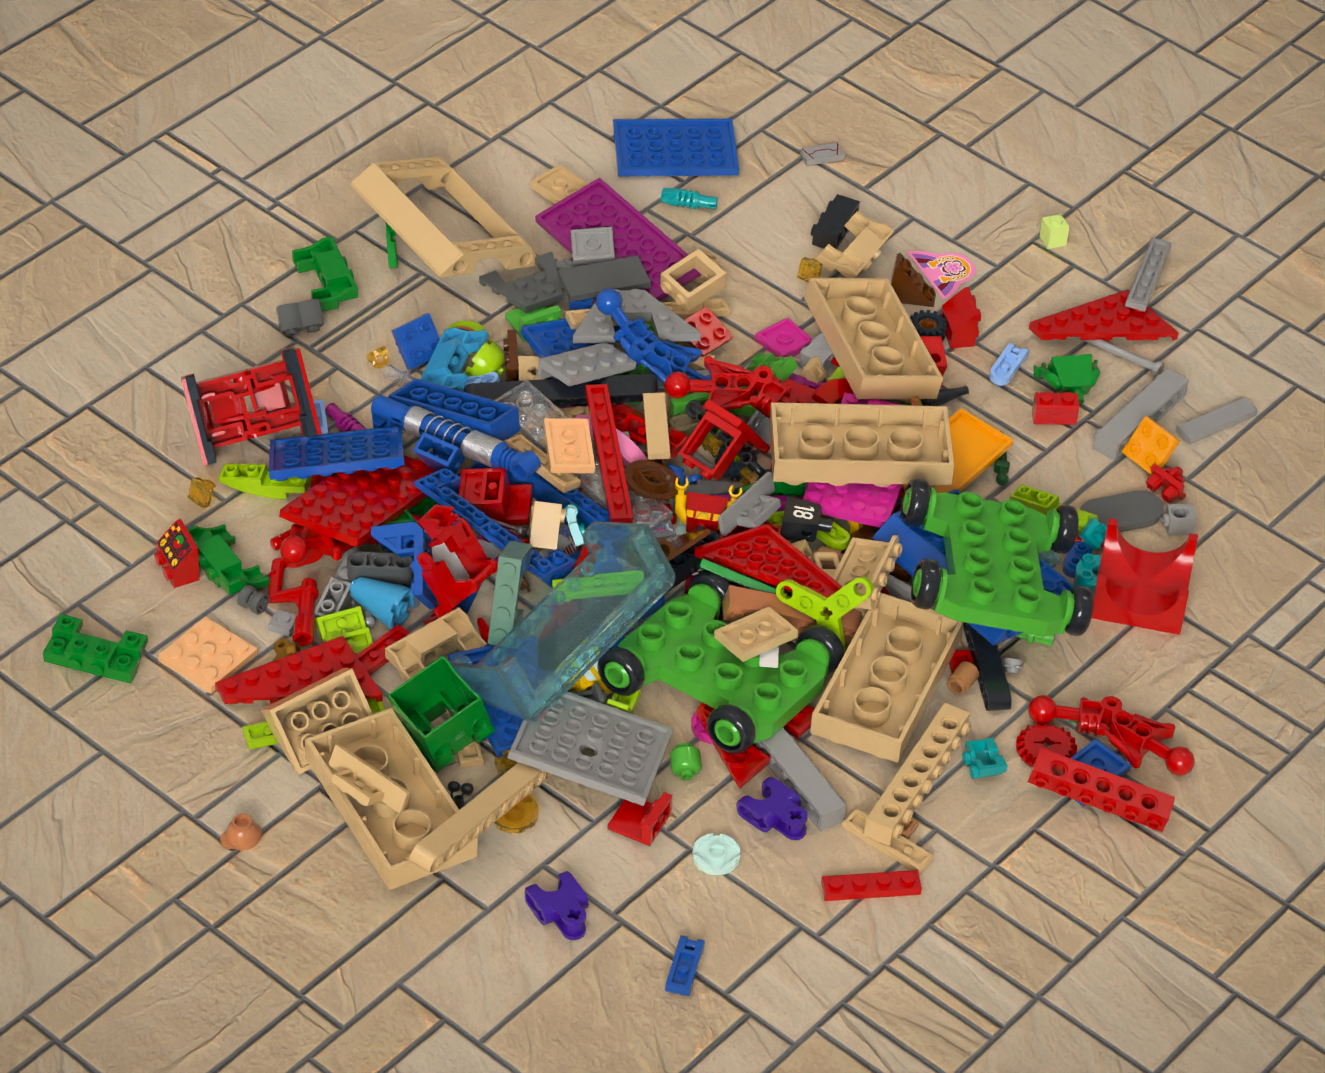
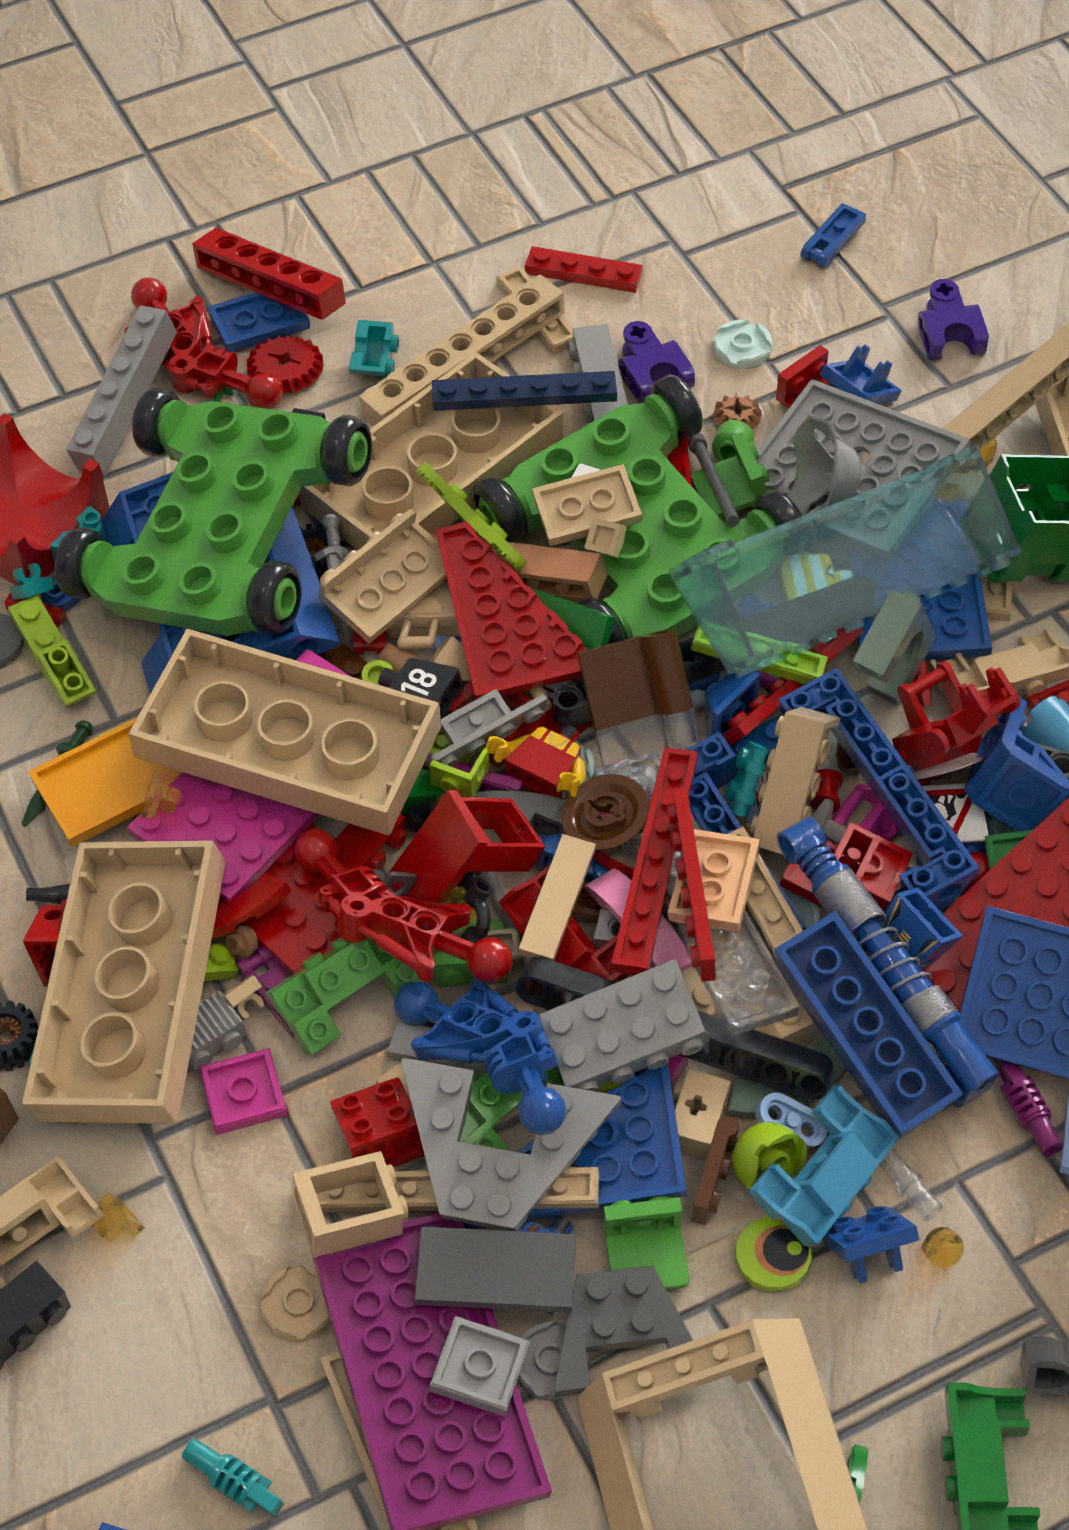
camera: 155 degrees left, 10 degrees up
(578, 423) = (693, 894): none -> red plate
(594, 693) = (819, 471): none -> light grey piece
(610, 827) = (860, 379): none -> blue plate
(670, 718) = (739, 474): none -> bright green bracket
(689, 800) = (749, 411): none -> nougat gear
(710, 750) = (699, 447): none -> dark grey bar
(730, 610) = (605, 537): none -> tan tile
(750, 475) = (453, 779): none -> lime bracket
(846, 716) = (524, 390): none -> dark blue plate
(1136, 670) = (121, 387): none -> light grey brick

